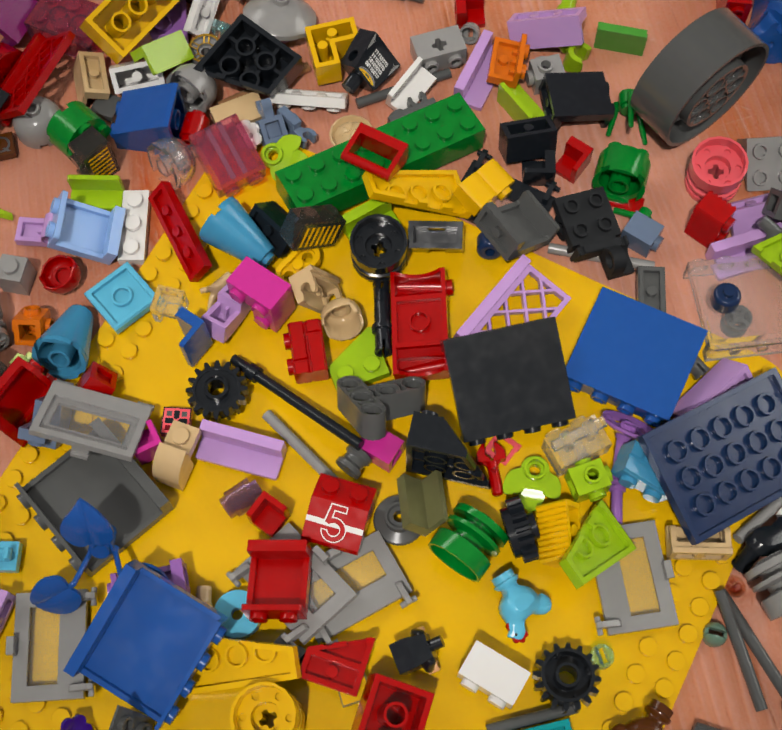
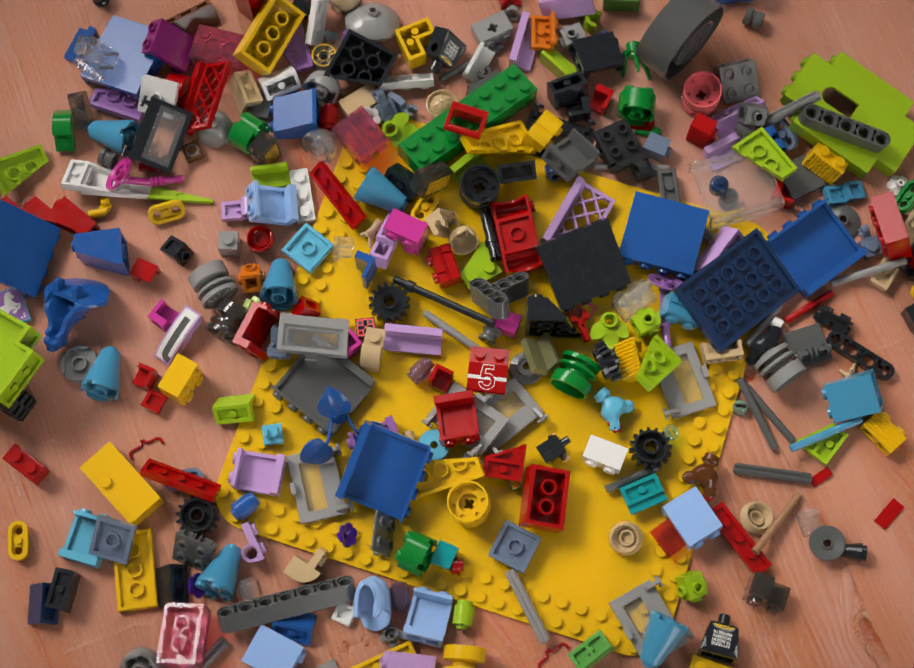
camera: 10 degrees left, 5 degrees up
(164, 52) = (297, 64): lime panel -> none

